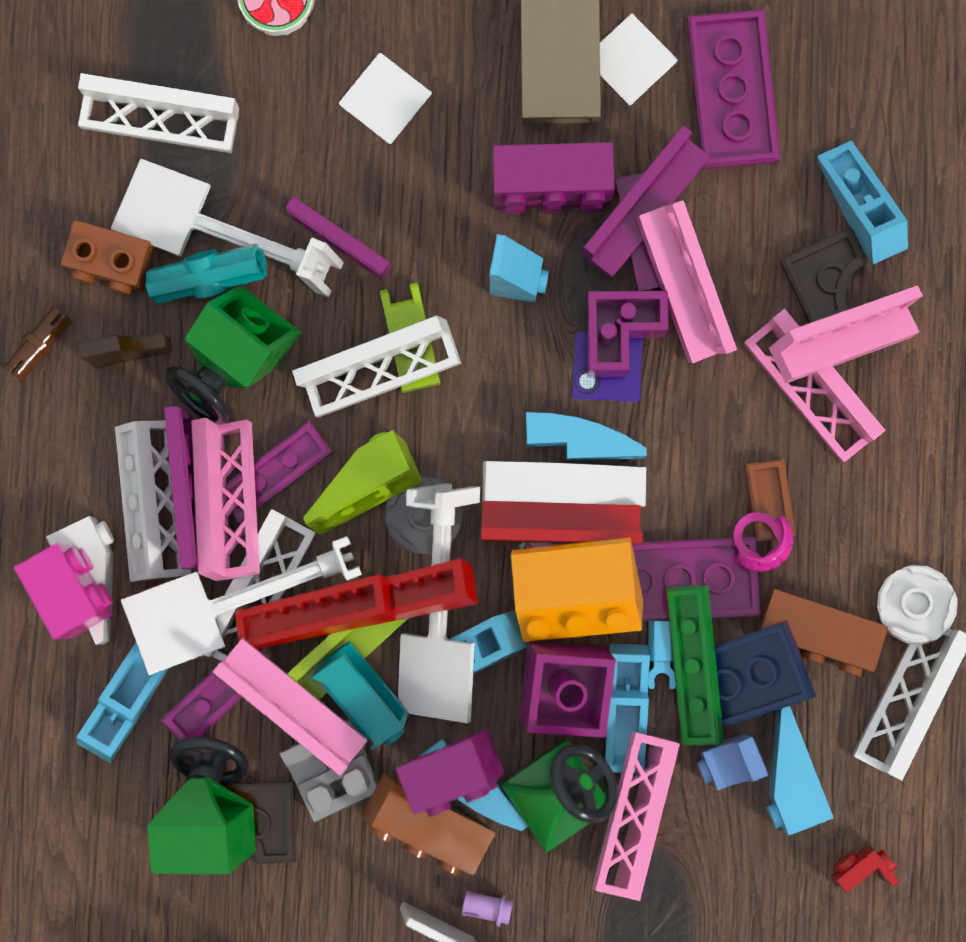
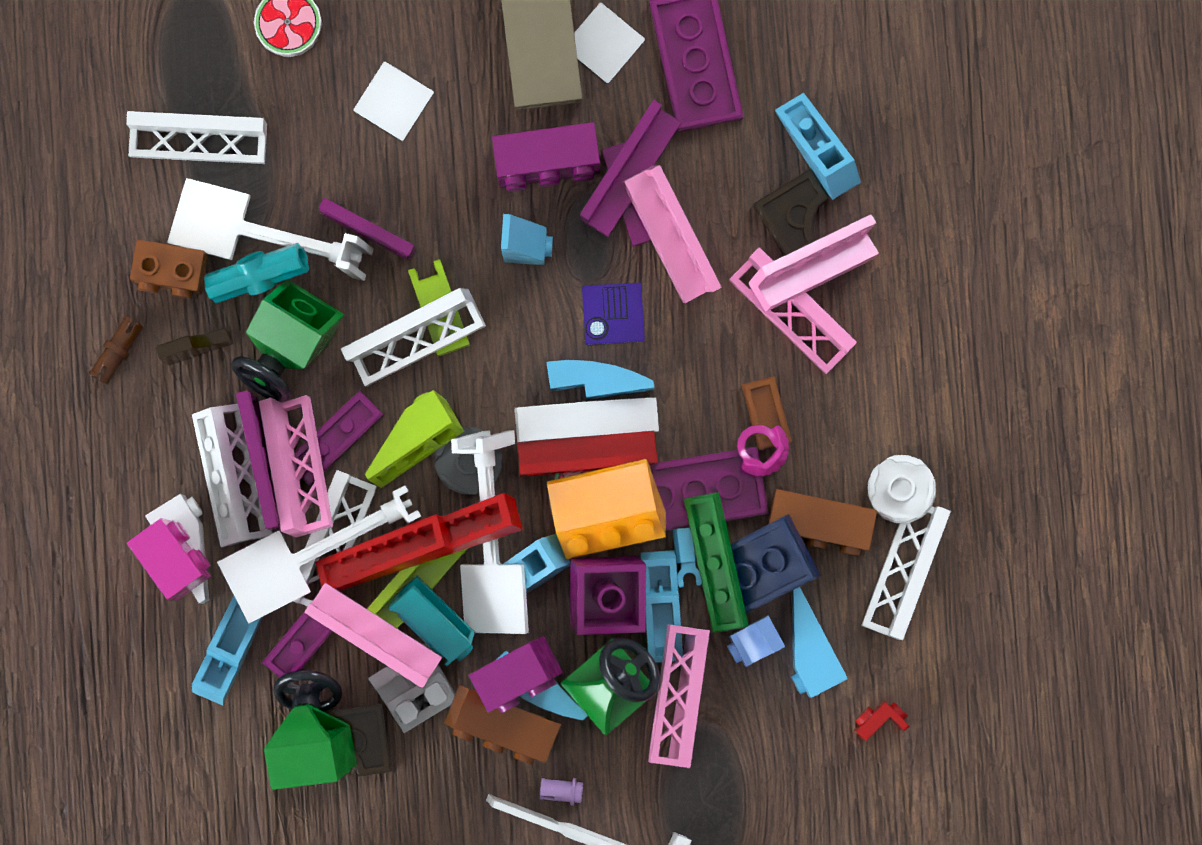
camera: 10 degrees left, 0 degrees up
(615, 318) = (615, 271): magenta brick -> none

